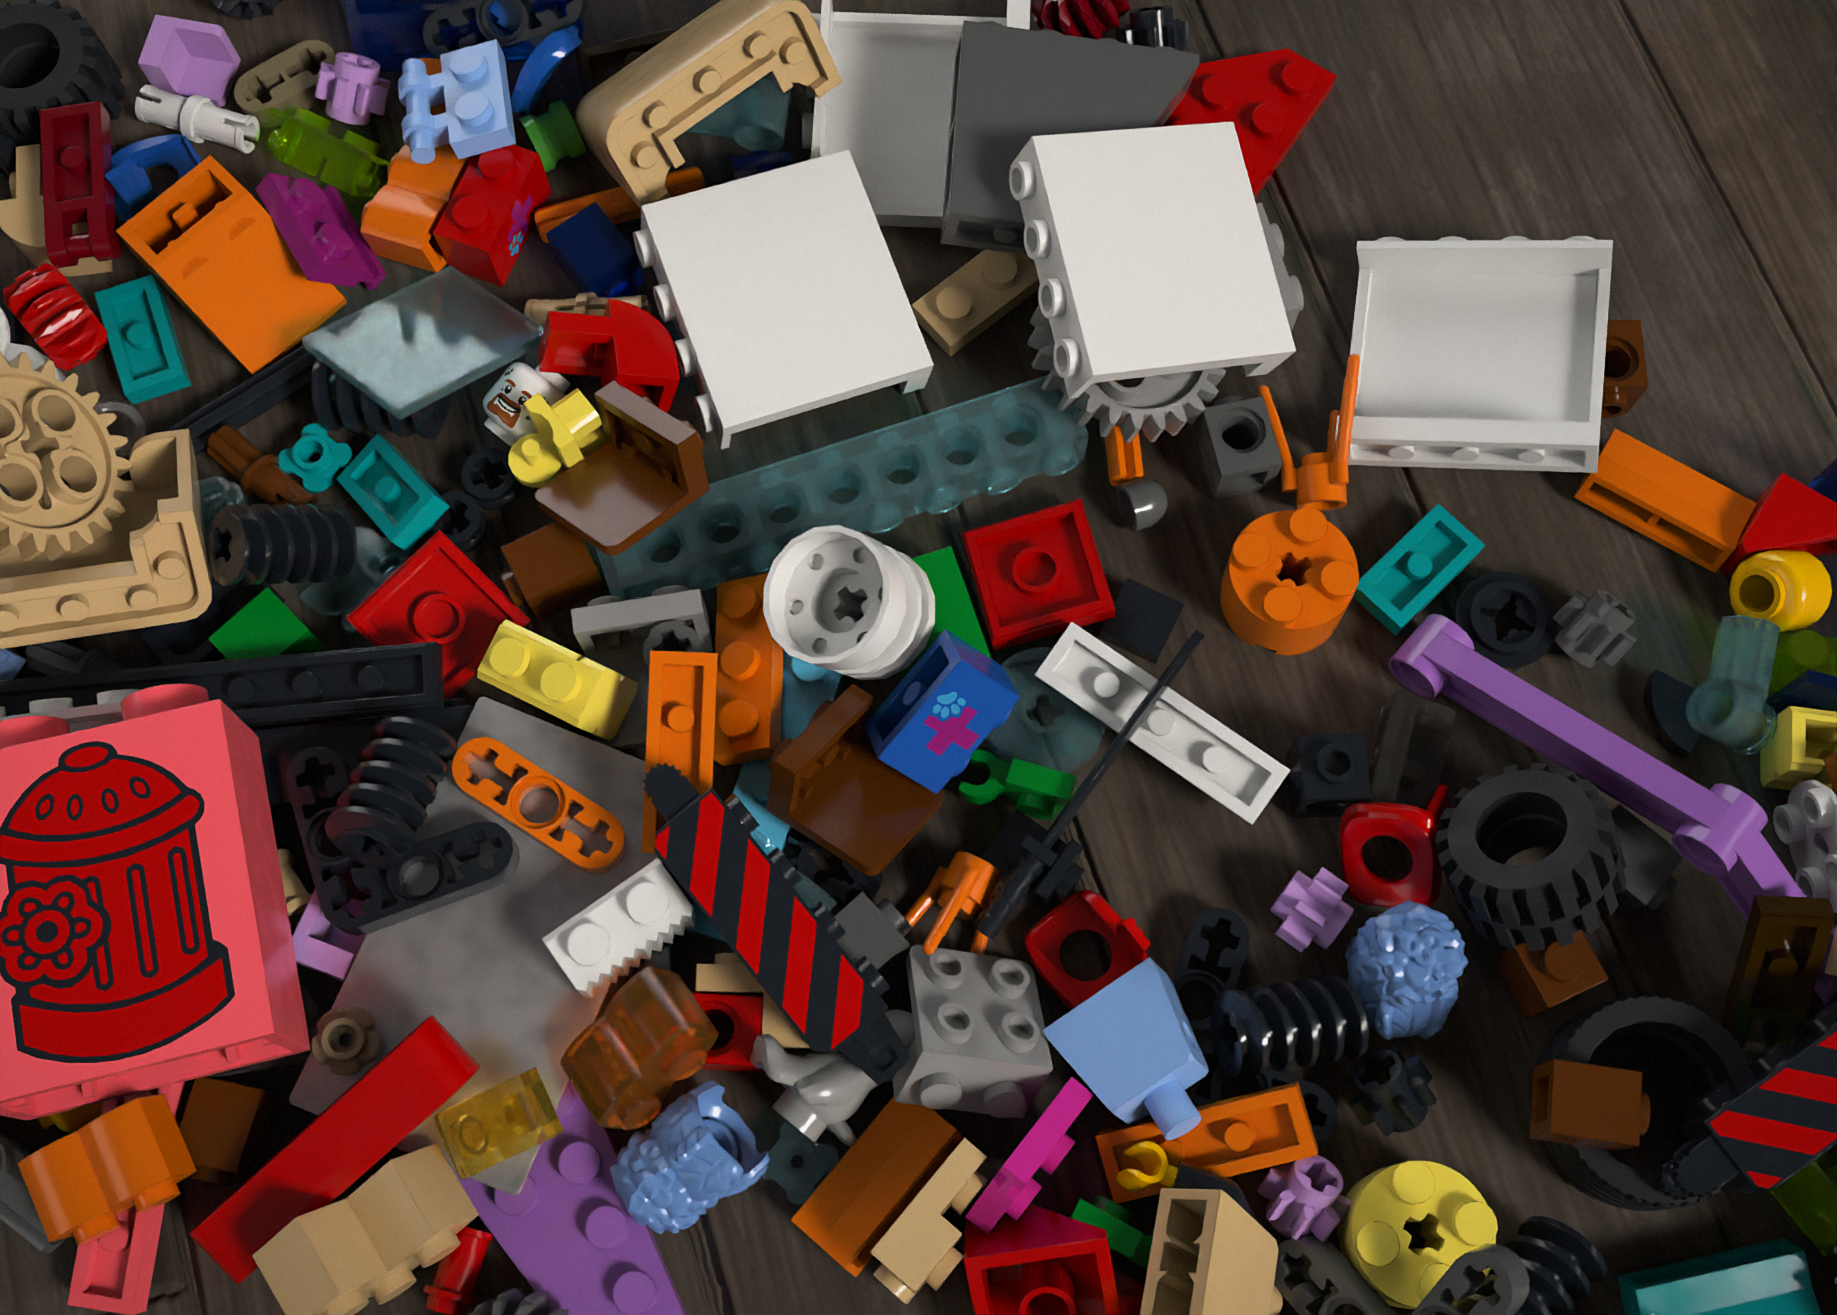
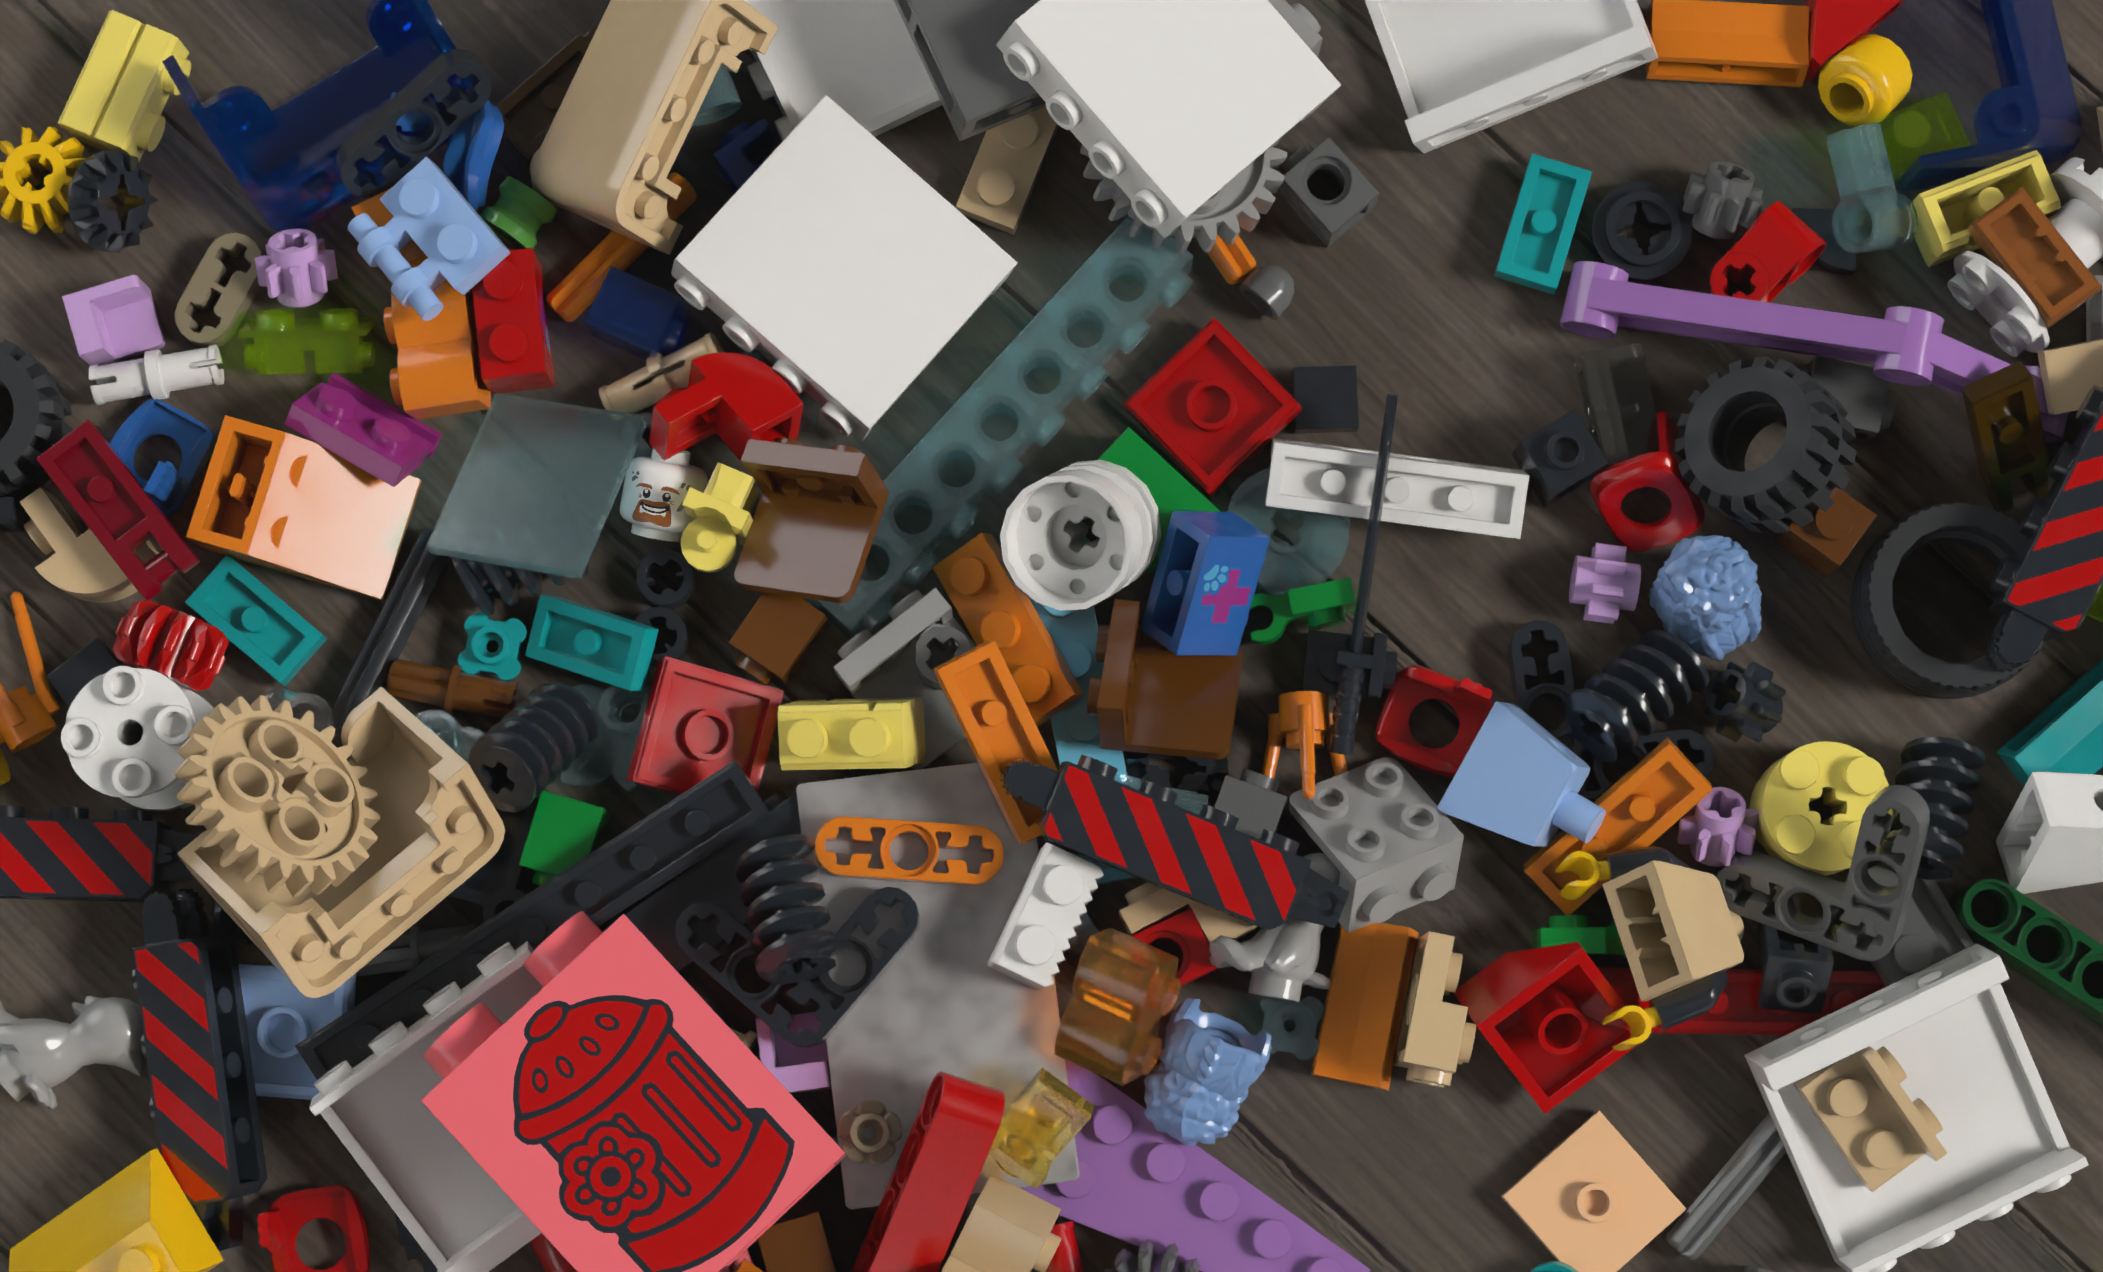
camera: 30 degrees left, 10 degrees up
(1043, 1148) = (1485, 909): dark pink plate -> none
(1316, 585) = (1431, 263): orange brick -> none
(1322, 475) = (1418, 183): orange plant -> none
(1588, 1105) = (1908, 634): reddish brown brick -> none
(1618, 694) = (1770, 255): none -> red piece

